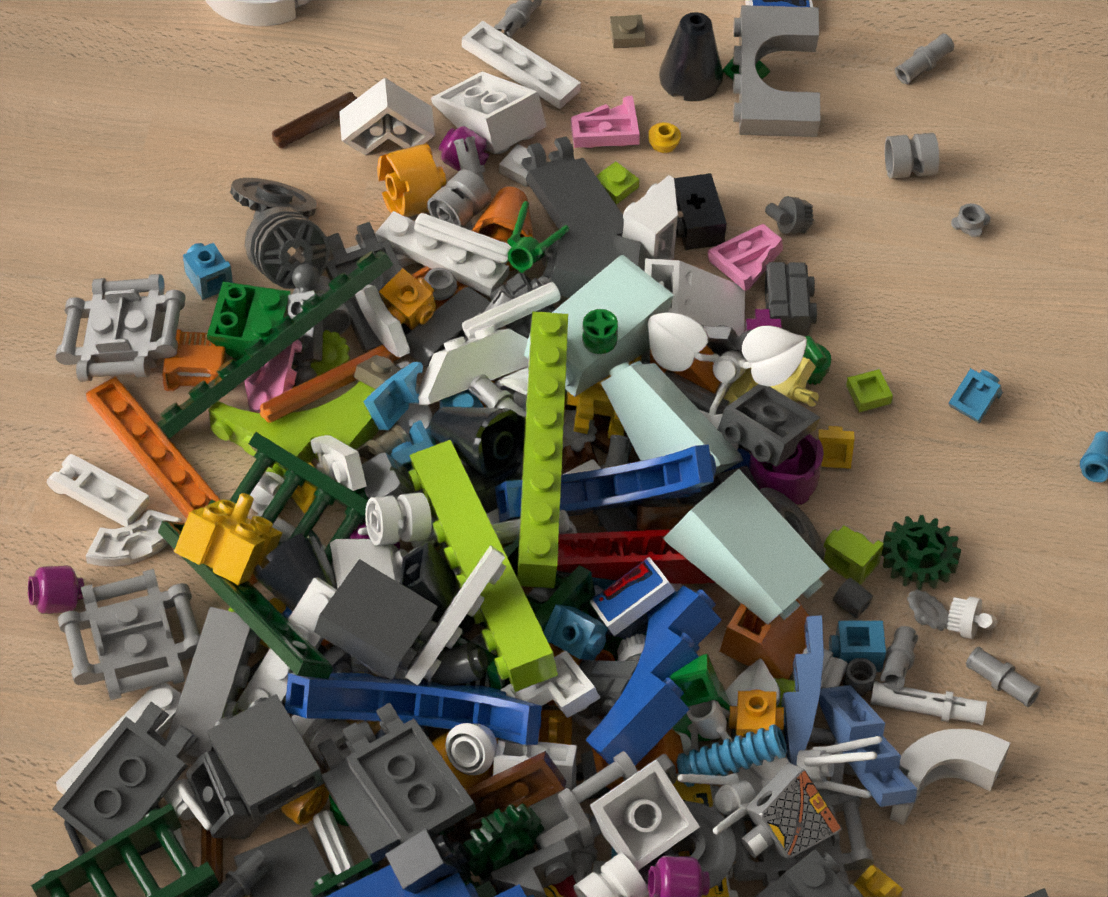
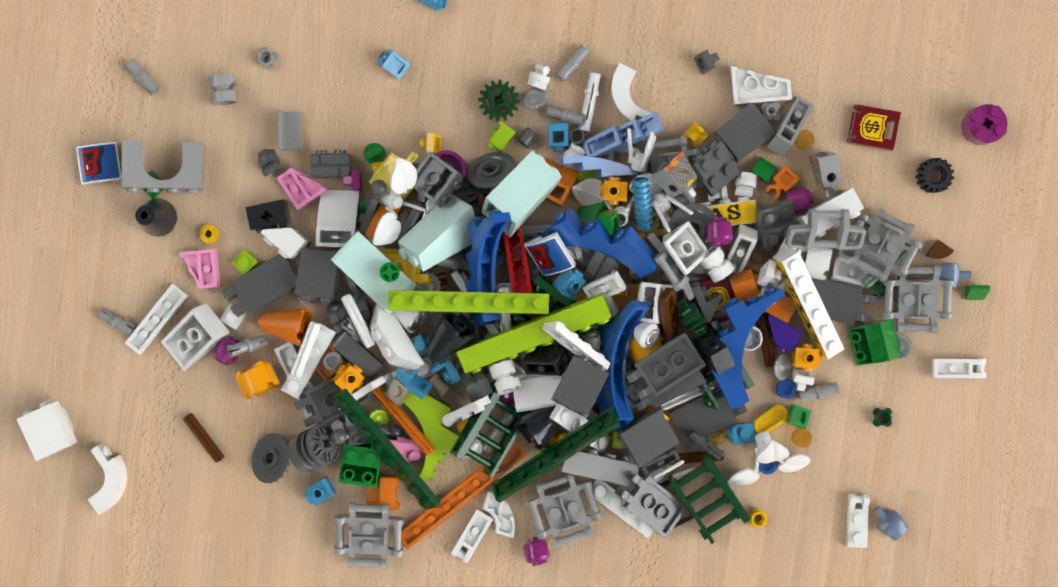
camera: 85 degrees left, 35 degrees up
(228, 539) = (520, 465): yellow brick -> none
(385, 114) = (208, 396): white brick -> none
(460, 199) = (269, 348): light grey wheel -> none
(493, 395) = (423, 325): light grey pin -> none
(527, 250) = (318, 312): green plant -> none
(627, 31) = (124, 255): dark tan plate -> none
(846, 243) = (289, 131): none -> light grey panel
(869, 390) = (392, 122): lime plate -> none

